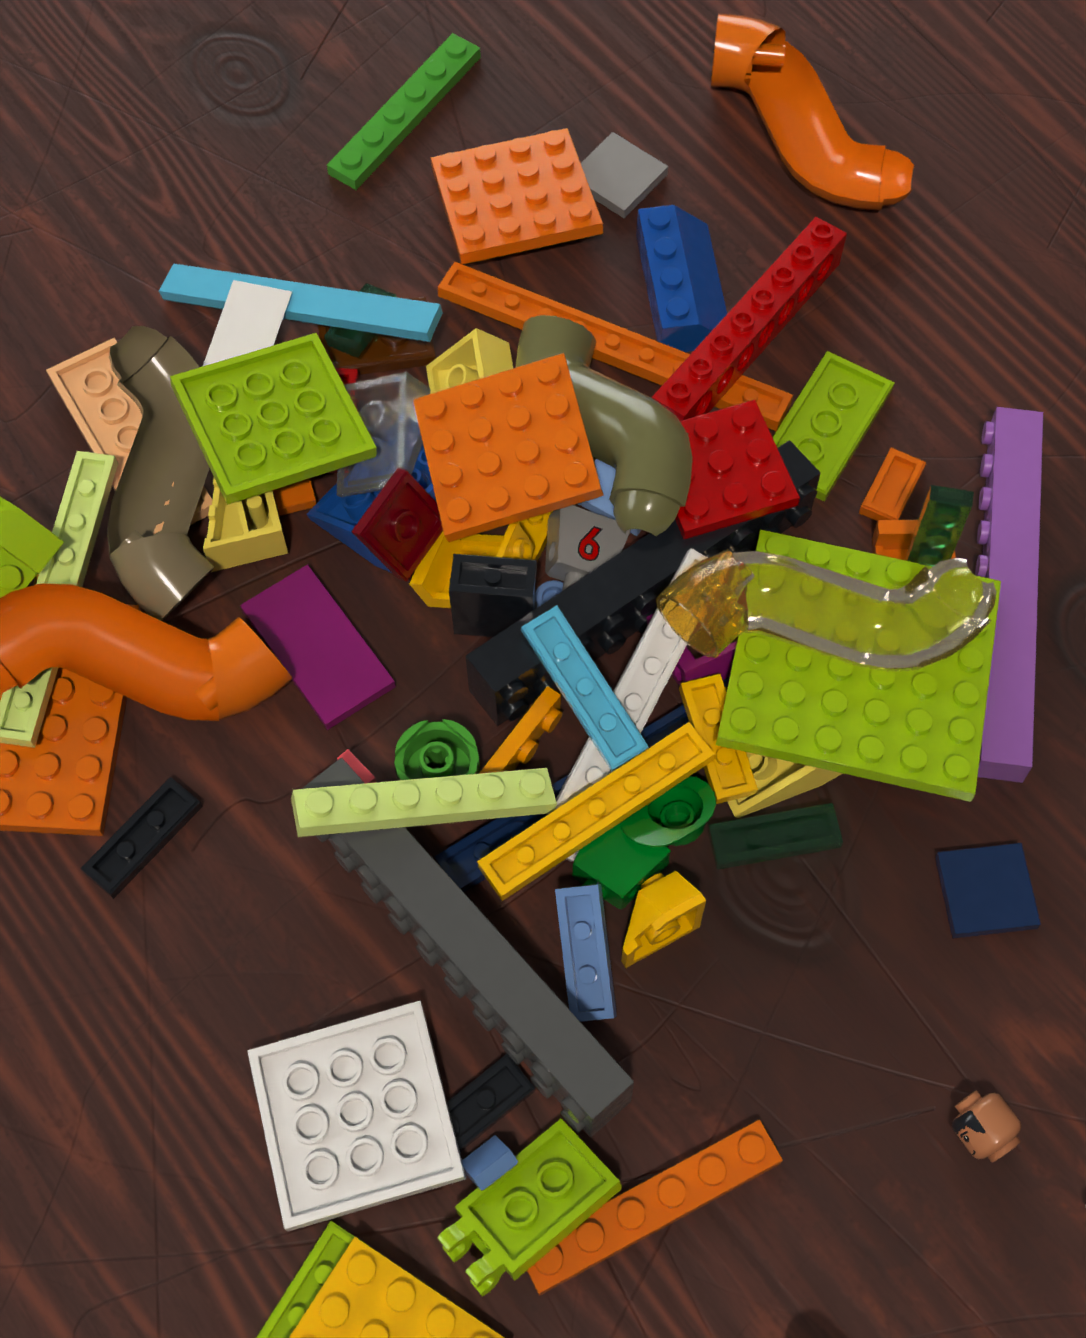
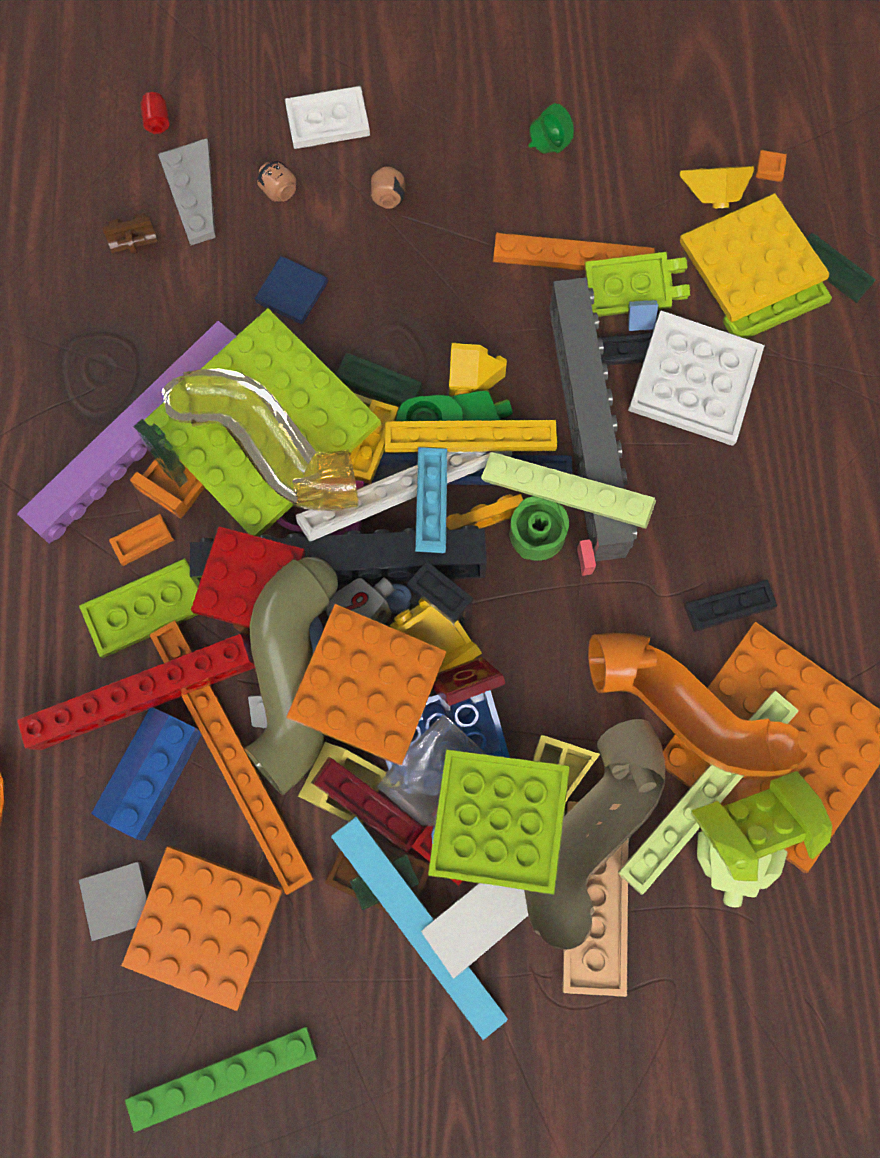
camera: 145 degrees left, 10 degrees up
(318, 646) = (559, 662): magenta tile -> none
(441, 362) = (367, 804): none -> dark red tile
(586, 952) = (525, 378): medium blue plate -> none

